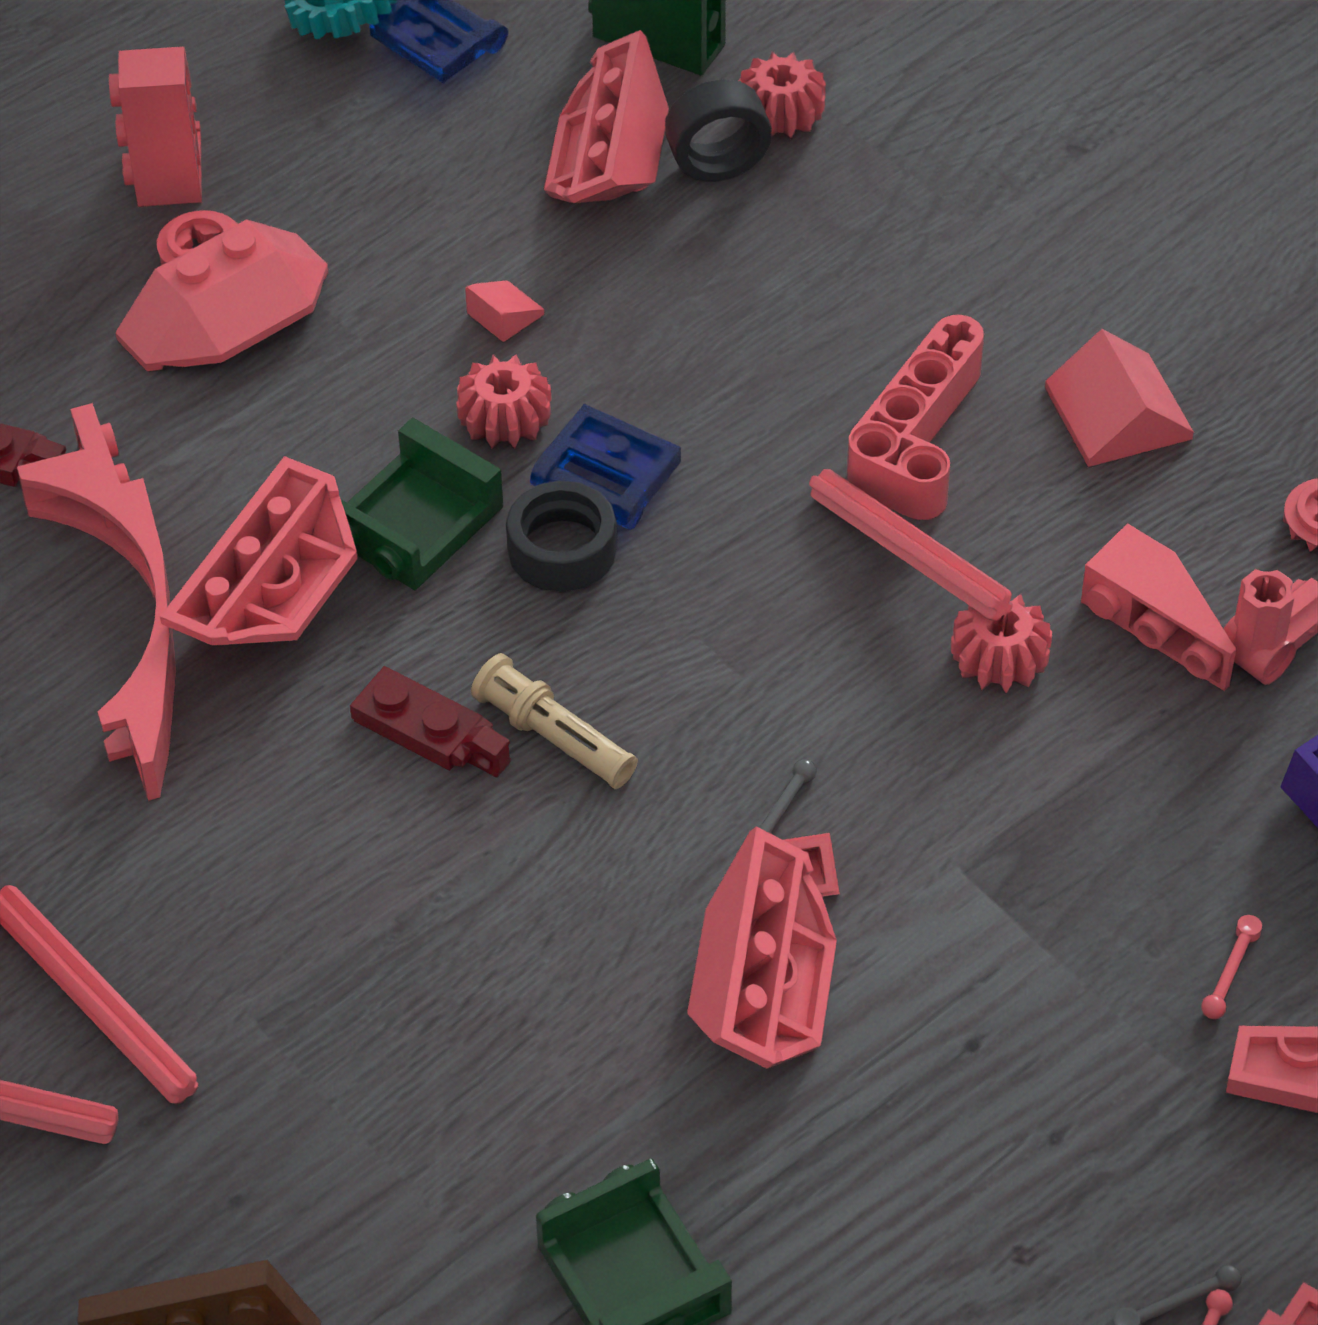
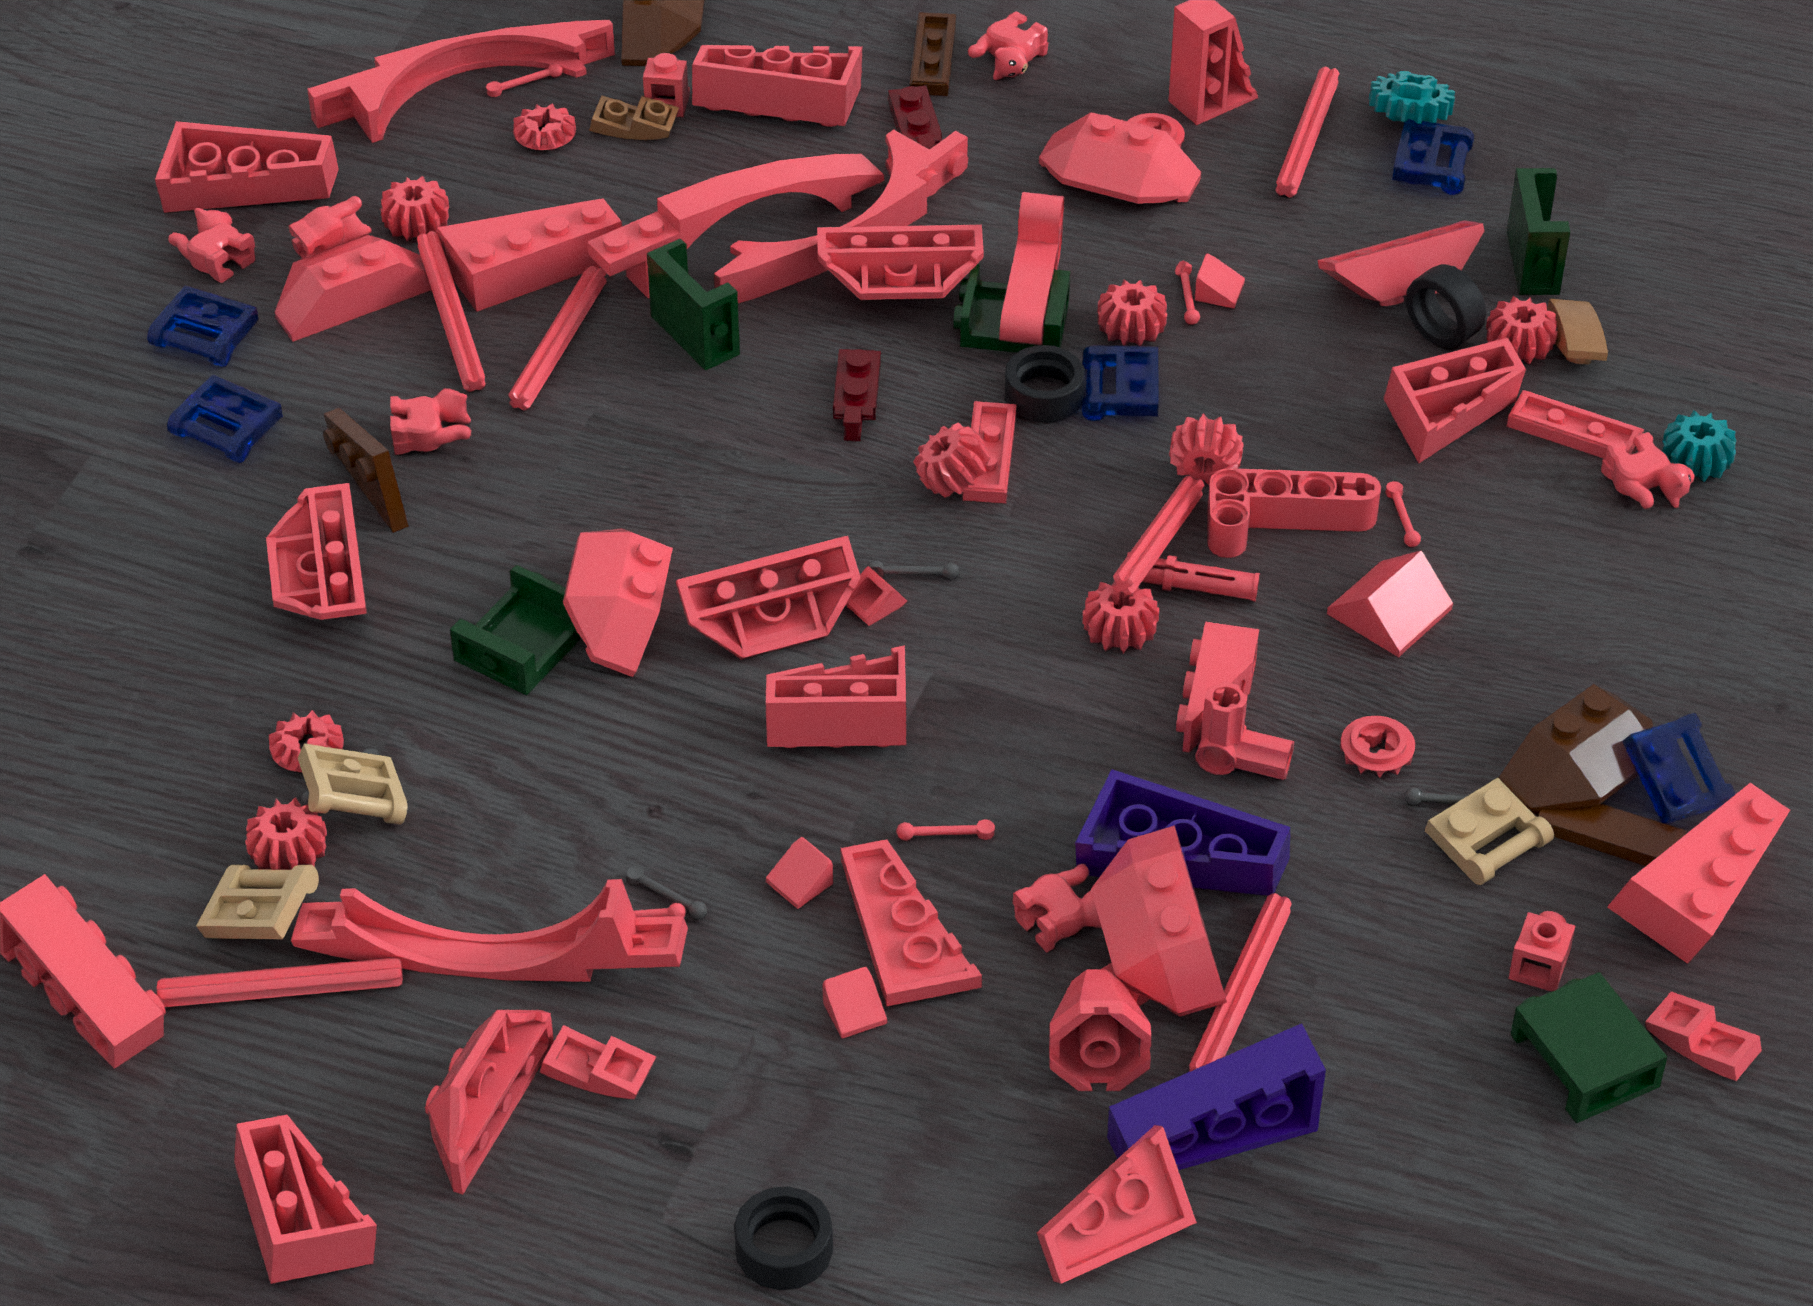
camera: 60 degrees right, 5 degrees down
(34, 744) = (697, 207): none -> coral slope
(156, 1216) = (418, 421): none -> coral animal
(180, 821) = (696, 319): none -> dark green panel
(307, 112) = (1307, 132): none -> coral axle
(387, 455) = (1032, 268): none -> coral beam
(453, 326) = (1183, 270): none -> coral hinge
(529, 711) = (898, 427): tan pin -> none
(626, 675) = (951, 460): none -> coral gear
(629, 643) = (996, 427): none -> coral tile
(653, 1114) = (616, 595): none -> coral wedge
(798, 437) = (1205, 447): none -> coral gear
(832, 53) = (1579, 331): none -> medium nougat slope
(857, 198) = (1452, 393): none -> coral wedge
(947, 131) = (1569, 425): none -> coral tile
(999, 966) = (839, 704): none -> coral wedge
(1010, 514) = (1202, 578): none -> coral pin
(1027, 339) = (1395, 491): none -> coral hinge
(1056, 48) = (1700, 444): none -> teal gear
(1056, 107) = (1646, 469): none -> coral animal
(1232, 1141) = (801, 873): none -> coral slope

